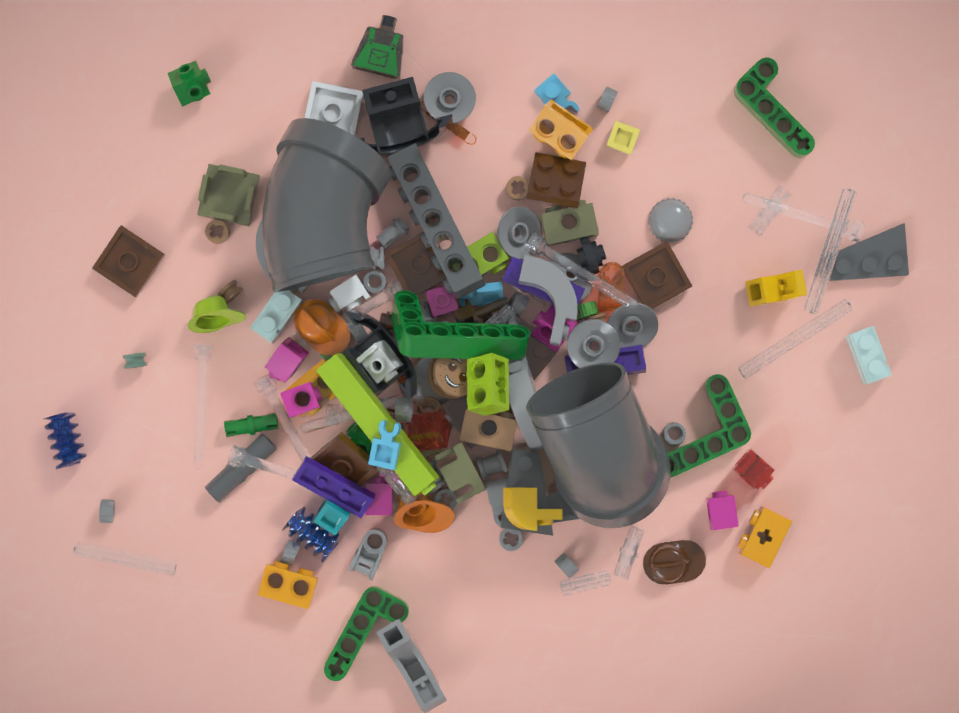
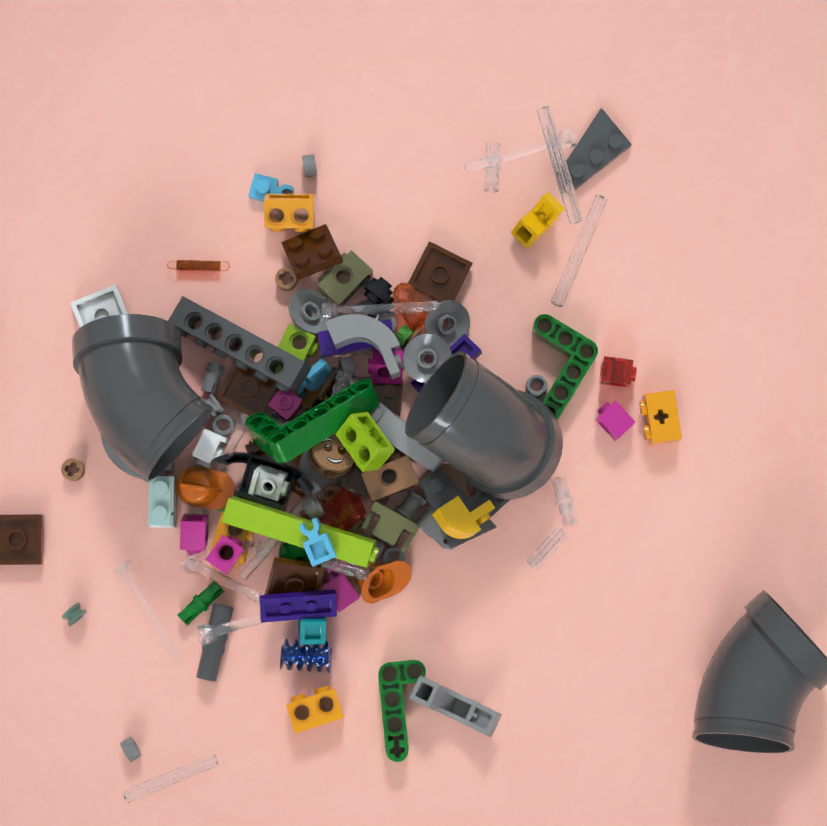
camera: 30 degrees left, 5 degrees down
(64, 439) = (59, 714): clear blue piece -> none
(213, 314) = (113, 535): lime piece -> none
(228, 194) = (62, 434): olive panel -> none
(230, 291) = (114, 509): medium nougat bush -> none
(290, 552) = (299, 683): light grey axle -> none
(357, 331) = (234, 471): light grey axle -> none
(369, 555) = (362, 642): light grey piece -> none
(381, 50) = (108, 244): torso -> none
(398, 117) = (155, 285): black piece -> none
(450, 85) = (186, 234): light grey dish -> none
(508, 547) = (467, 561): light grey bush -> none
(566, 565) = (523, 544): light grey axle -> none
(623, 138) = (341, 186): light yellow plate -> none
(670, 220) = (421, 225): light grey hat -> none
(674, 562) = (605, 485): reddish brown piece -> none
(778, 111) = (447, 87): green beam -> none
(868, 355) = (643, 224): light aqua brick -> none

